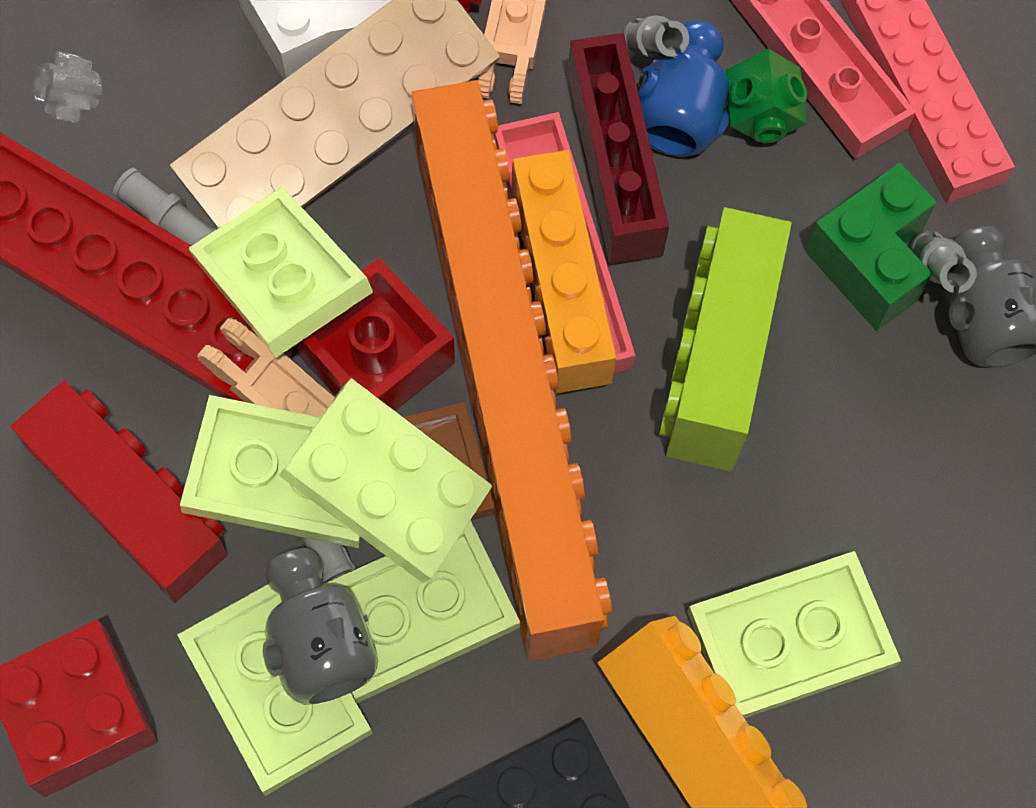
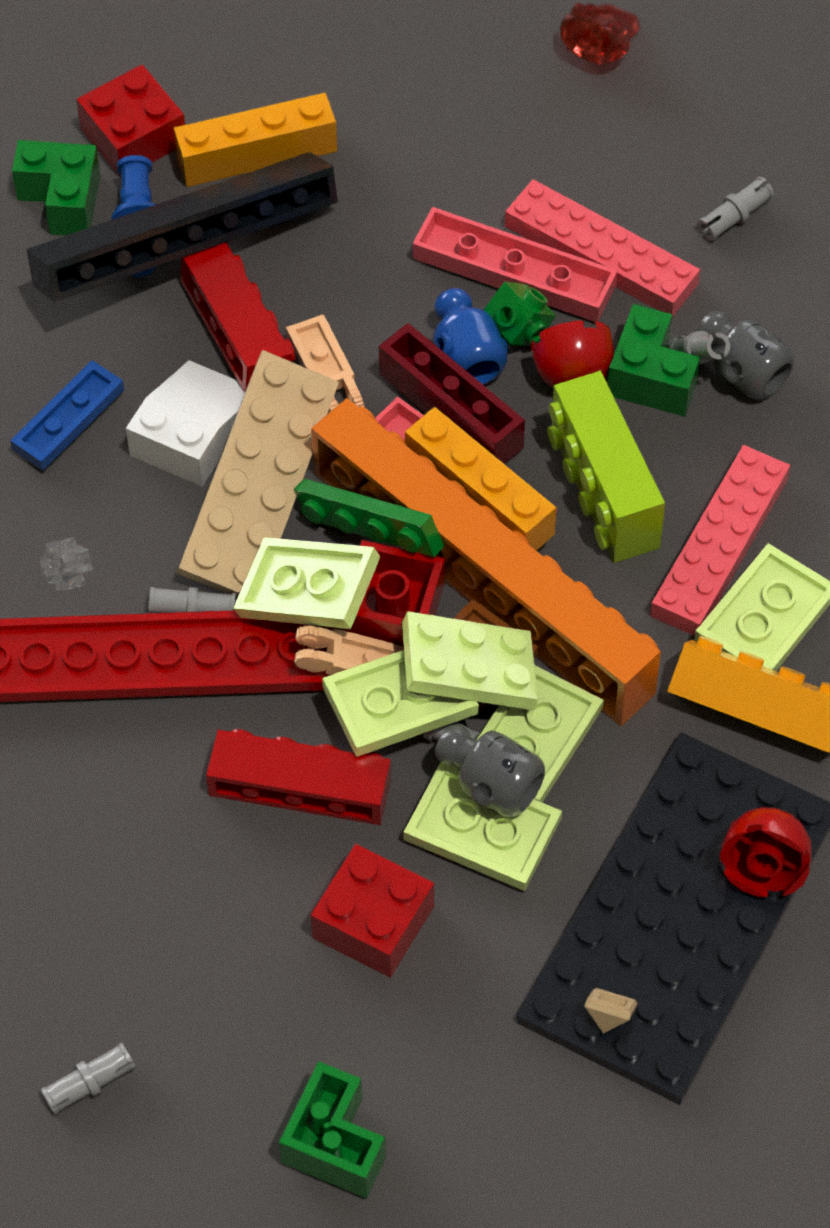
camera: 30 degrees left, 10 degrees down
(412, 242) = (369, 517): none -> green plate
(656, 36) = (428, 313): light grey pin -> none
(786, 183) = (572, 351): none -> red cylinder
(804, 509) = (720, 540): none -> coral piece

